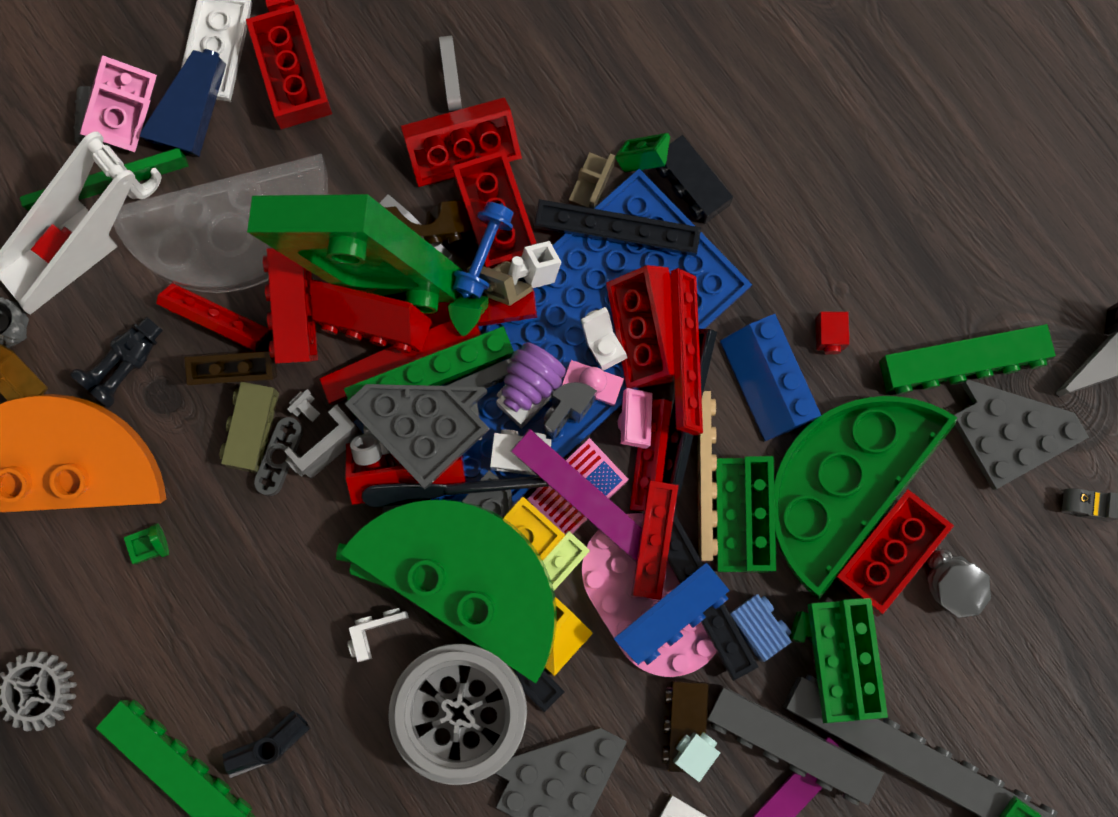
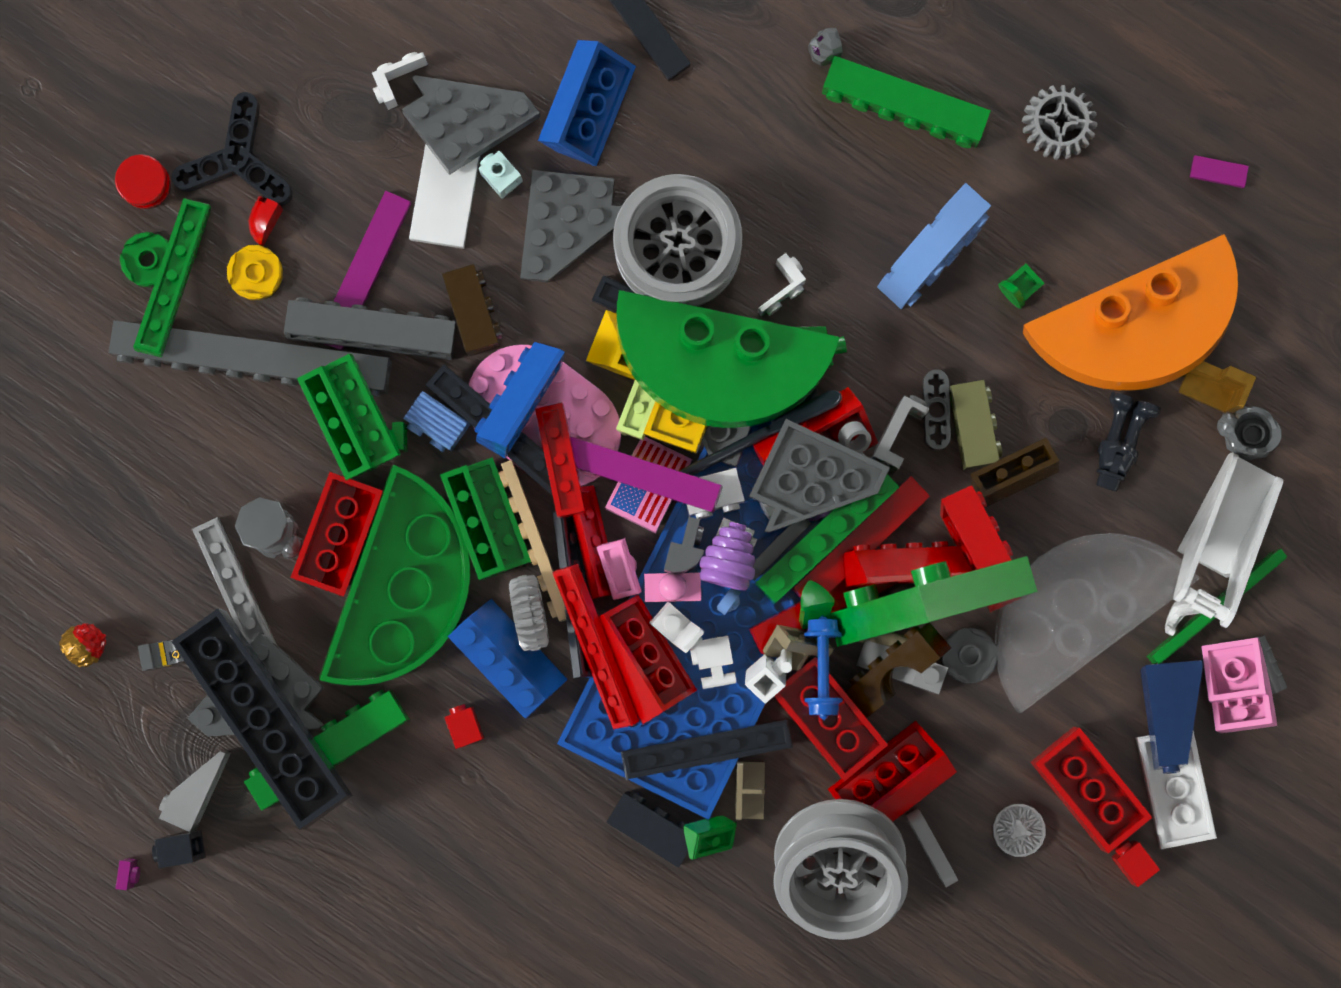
camera: 165 degrees right, 5 degrees up
(51, 242) = (1229, 522): red brick -> none
(207, 607) = (936, 247): none -> medium blue brick
(213, 316) = (1054, 515): red plate -> none
(252, 756) = (845, 140): black piece -> none
(301, 403) = (935, 465): light grey brick -> none
(367, 61) = (1019, 830): none -> light grey wheel
(539, 71) = (865, 901): none -> light grey wheel
(549, 345) = (729, 602): none -> medium blue tile
(579, 302) = (714, 654): none -> white brick
(696, 754) = (454, 284): light aqua brick -> none
(736, 408) = (528, 612): none -> light grey gear
(1006, 550) = (231, 580): none -> light grey tile
(1024, 402) = (262, 718): none -> black brick

